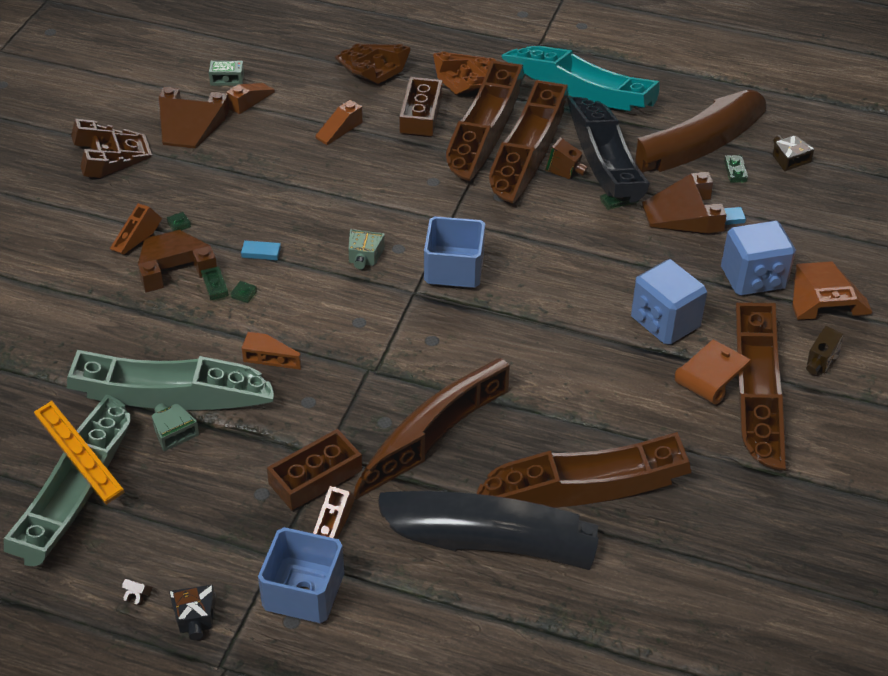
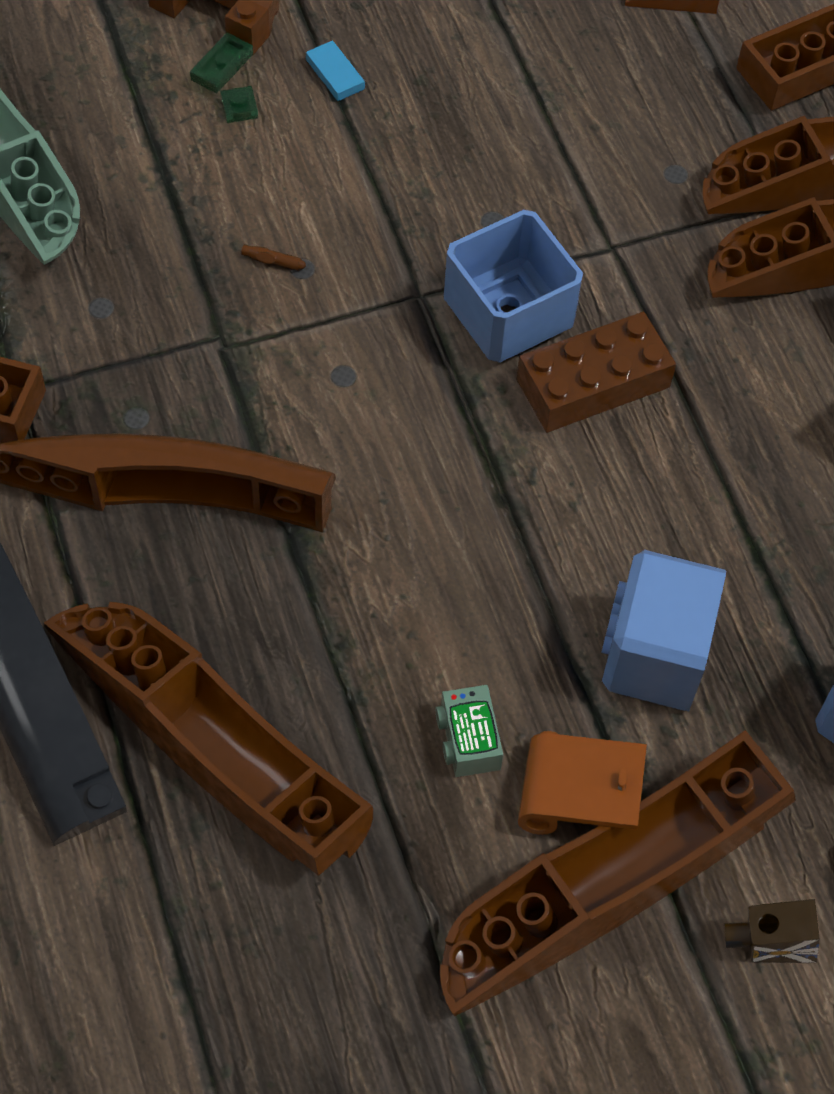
camera: 50 degrees right, 15 degrees up
(266, 350) = (141, 193): dark orange slope -> none
(344, 327) = (273, 257): none -> reddish brown piece
(365, 247) = (443, 180): sand green torso -> none
(514, 258) = (595, 371): none -> reddish brown brick
(655, 394) = (470, 731): none -> brick

